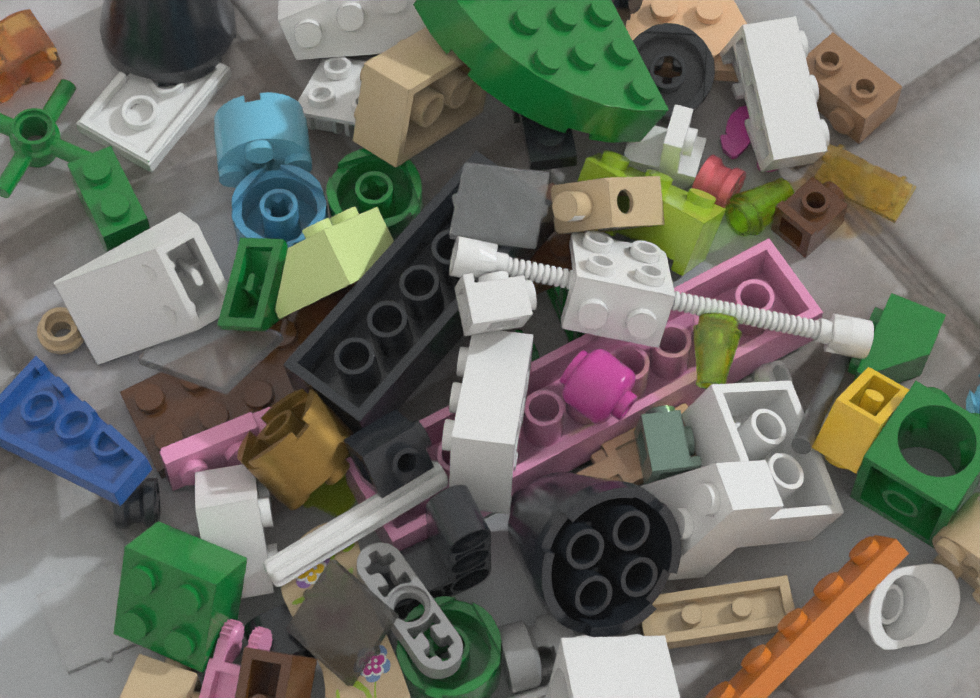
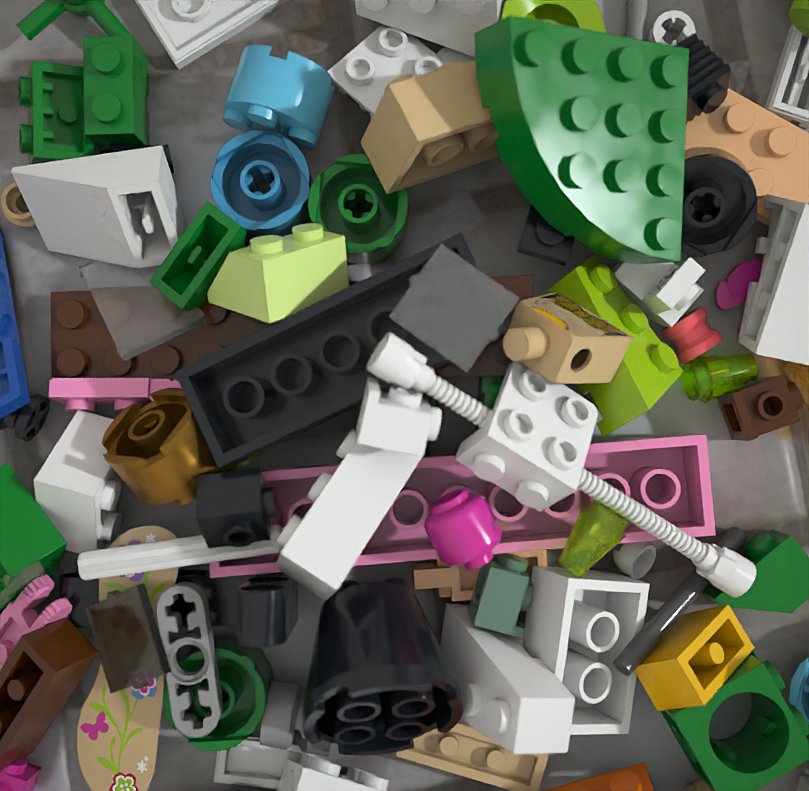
camera: 25 degrees right, 25 degrees up
(55, 241) = (54, 113): none -> green bracket

